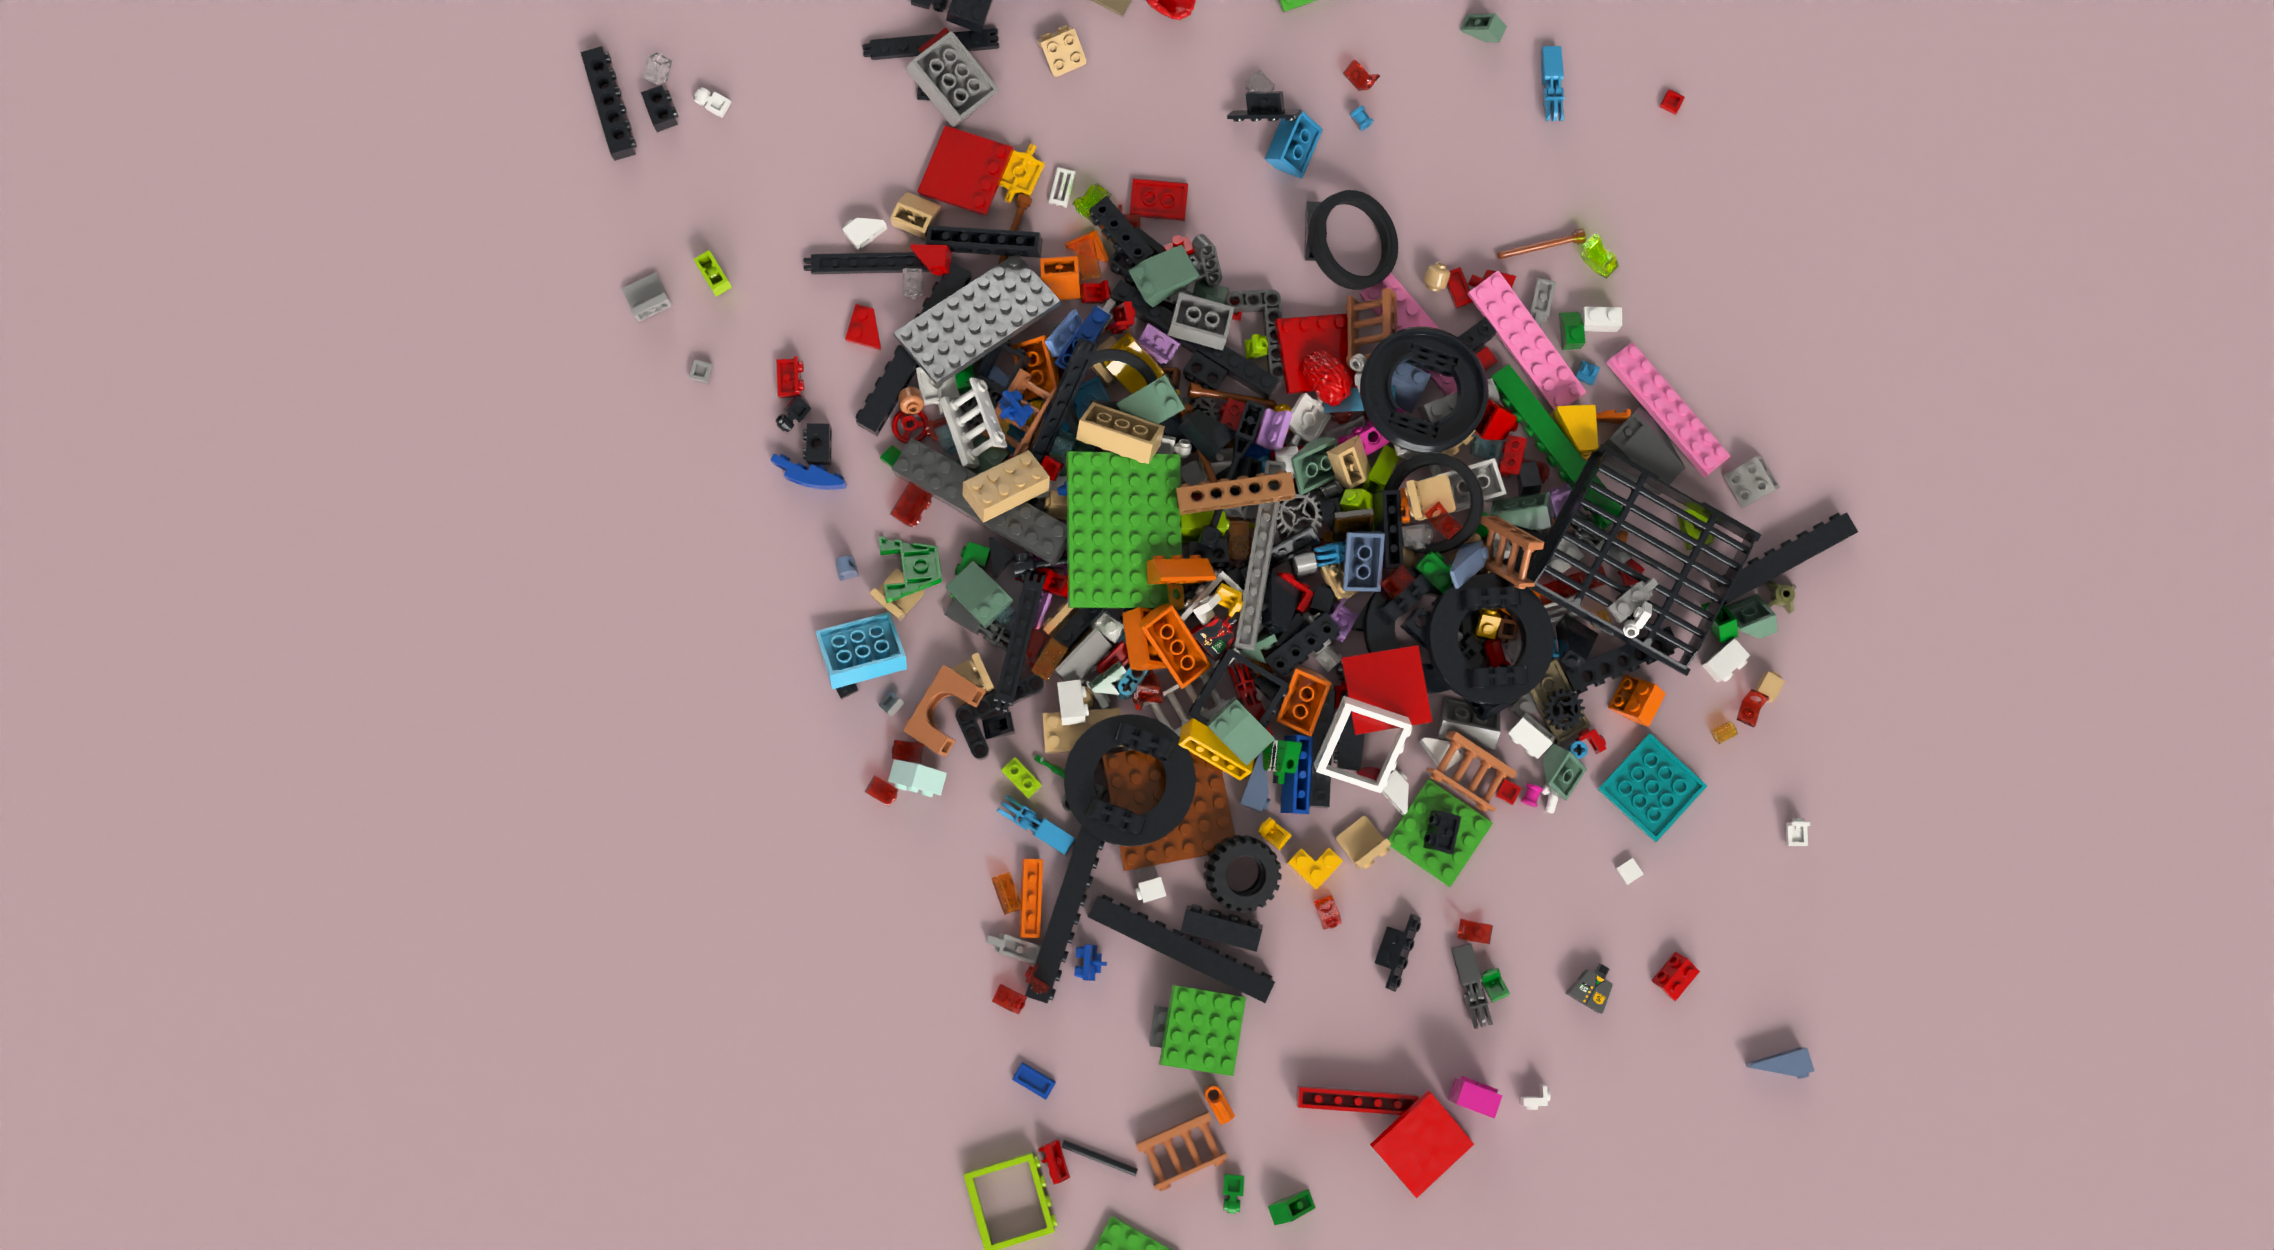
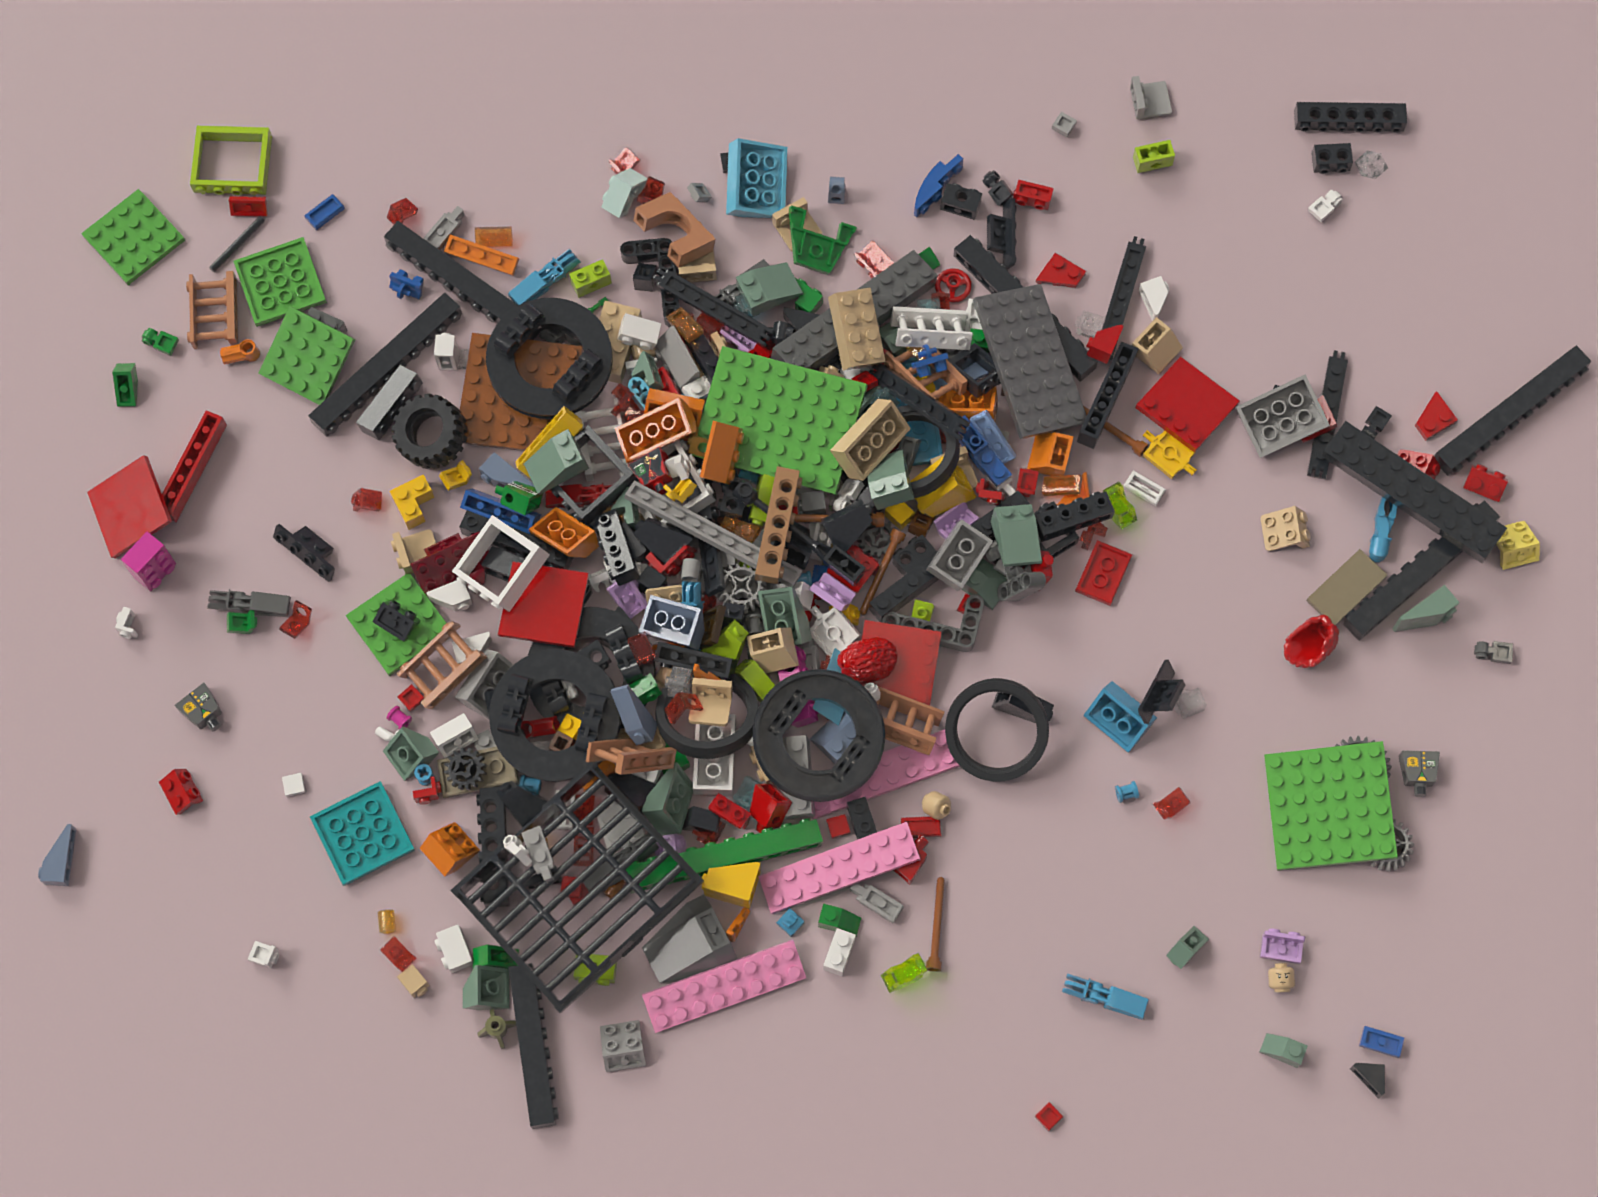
camera: 115 degrees right, 10 degrees down
(840, 393) = (1002, 233): none -> black bracket
(911, 400) = (974, 287): nougat head -> none
(1037, 985) = (405, 228): clear red bracket -> none
(1127, 1094) = (278, 280): none -> bright green plate
(1364, 808) = (441, 559): none -> dark red bracket

